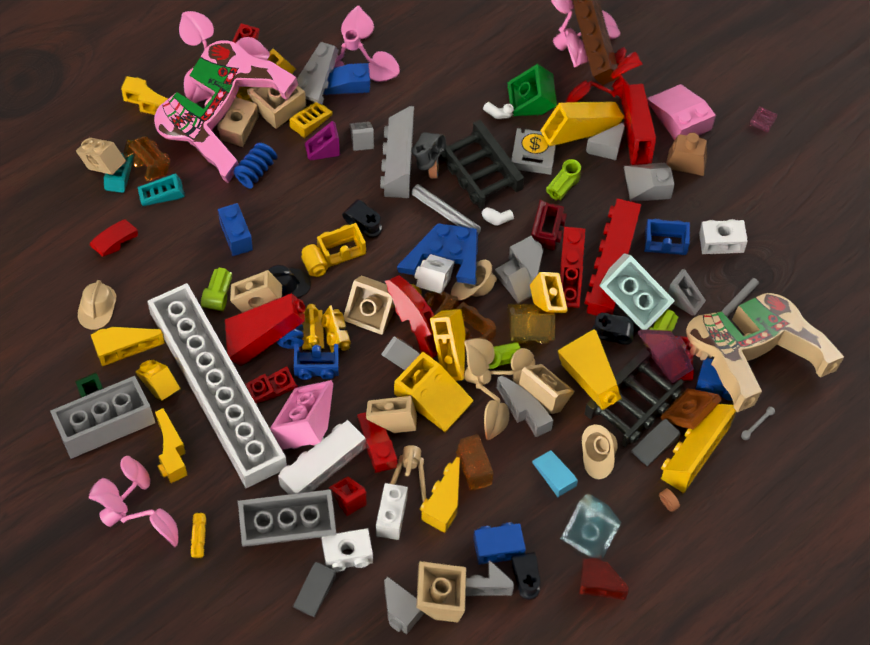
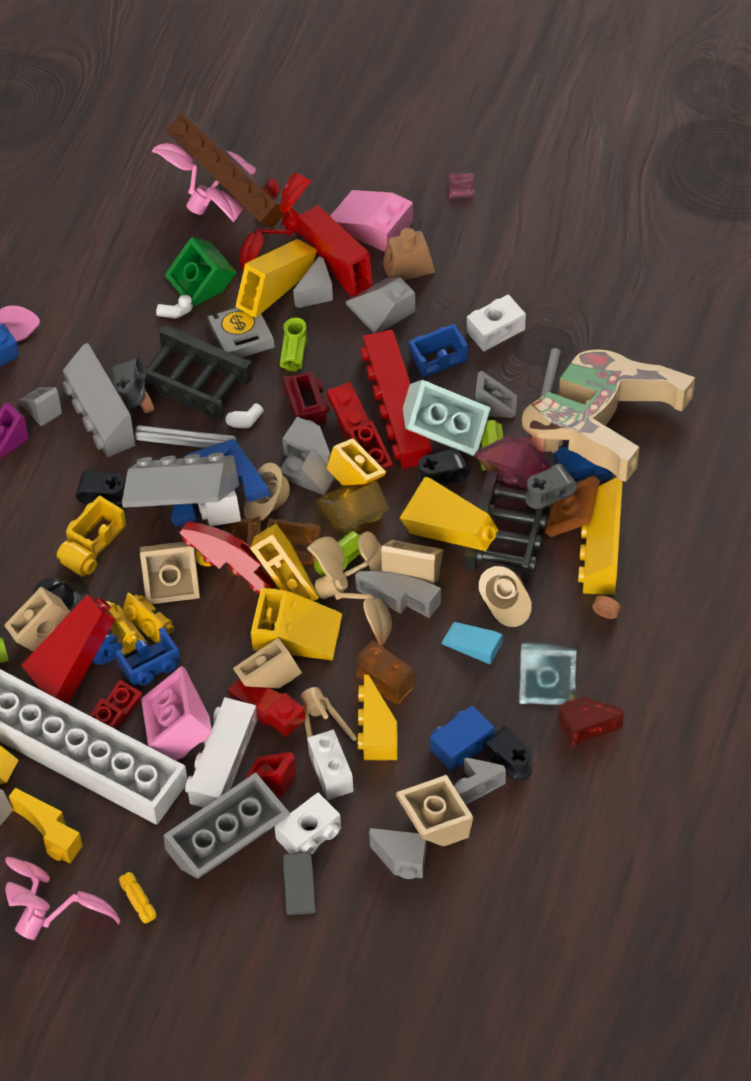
camera: 25 degrees left, 5 degrees down
(400, 353) = (239, 601): light grey slope -> none
(415, 241) = (180, 480): none -> light grey slope
(656, 442) = (557, 558): dark grey slope -> none
(681, 385) = (549, 486): none -> dark grey piece
(746, 434) = (641, 506): light grey hinge -> none

